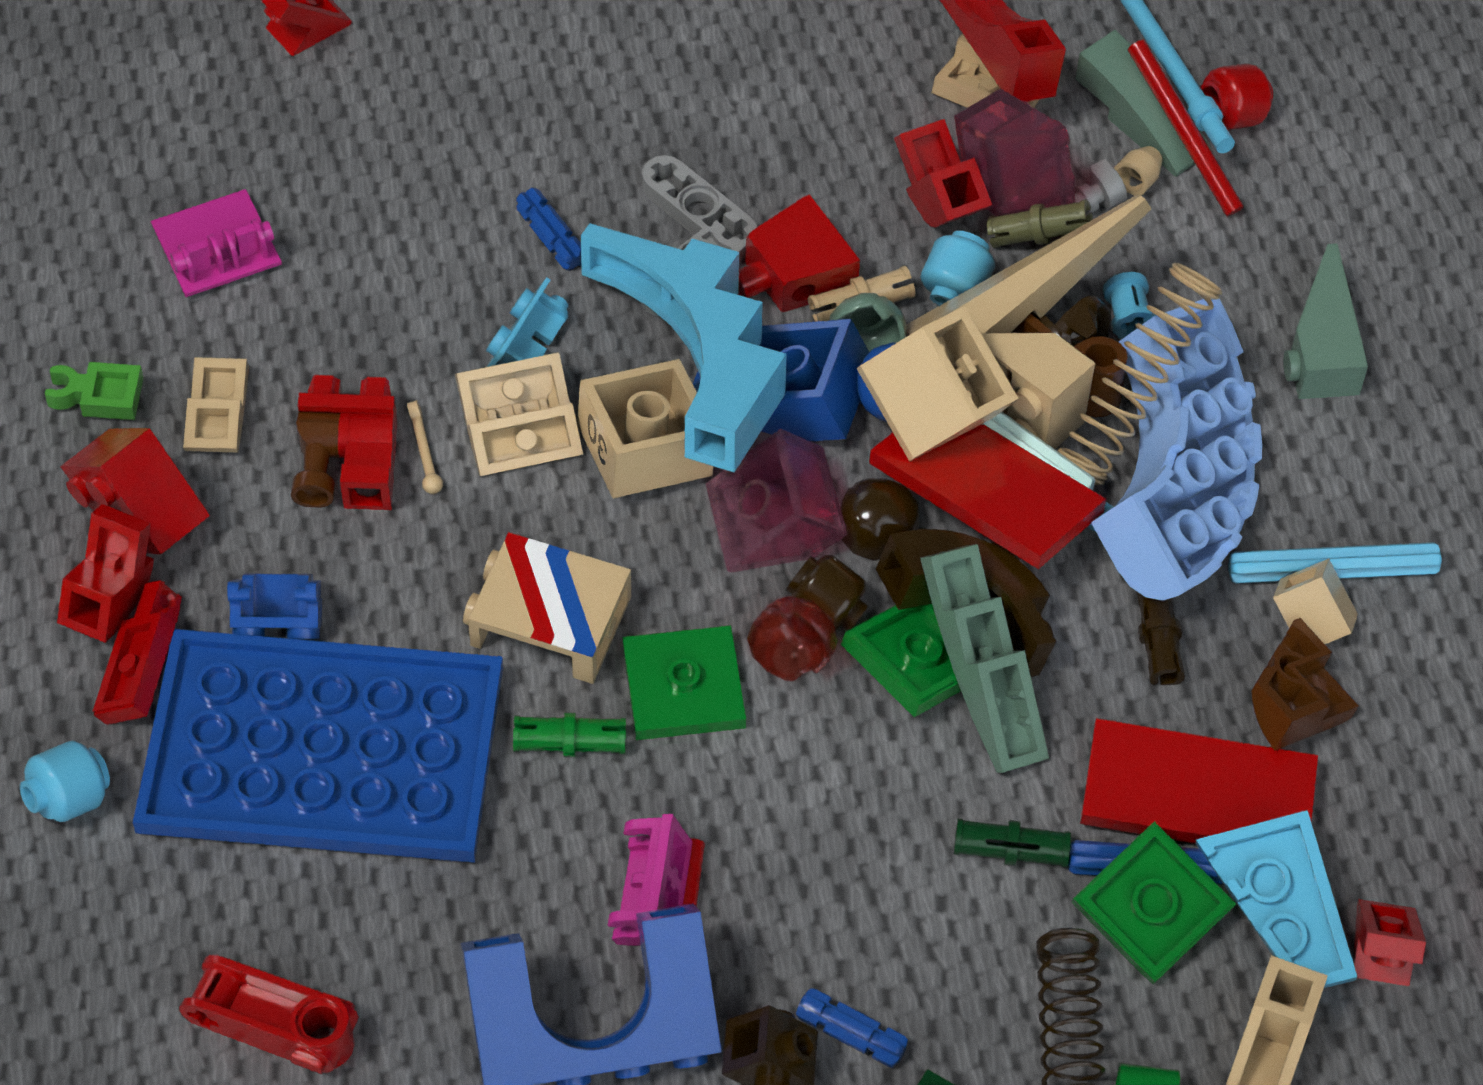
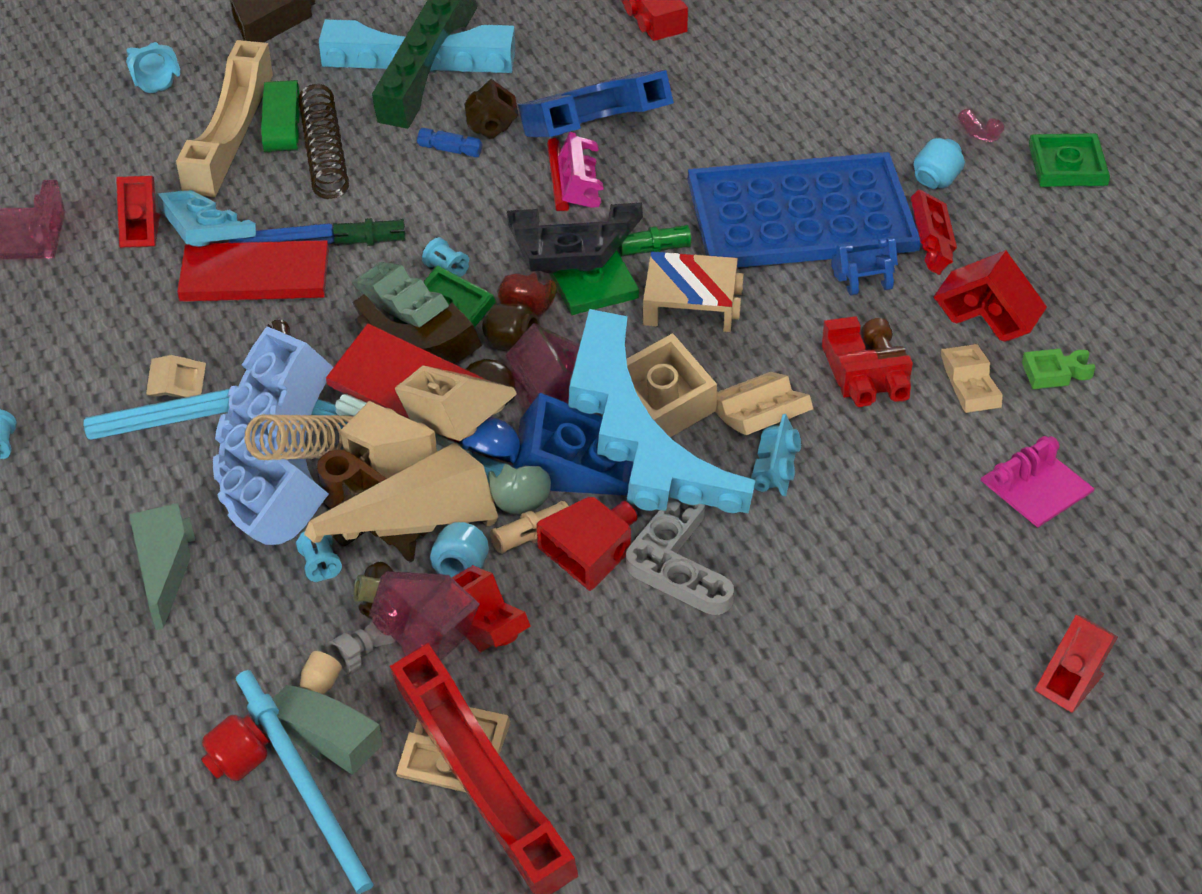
camera: 170 degrees right, 10 degrees down
(111, 576) = (976, 243): red brick -> none
(272, 1014) = (768, 94): red piece -> none
(432, 482) = (832, 399): tan hinge -> none
(550, 228) = (790, 540): blue axle -> none
(709, 709) = (575, 244): none -> black wing
(901, 749) = (446, 257): none -> medium azure bush
(1153, 903) = (282, 209): green plate -> none
(1185, 128) = (284, 696): red bar -> none
(1296, 692) = (188, 320): reddish brown slope -> none

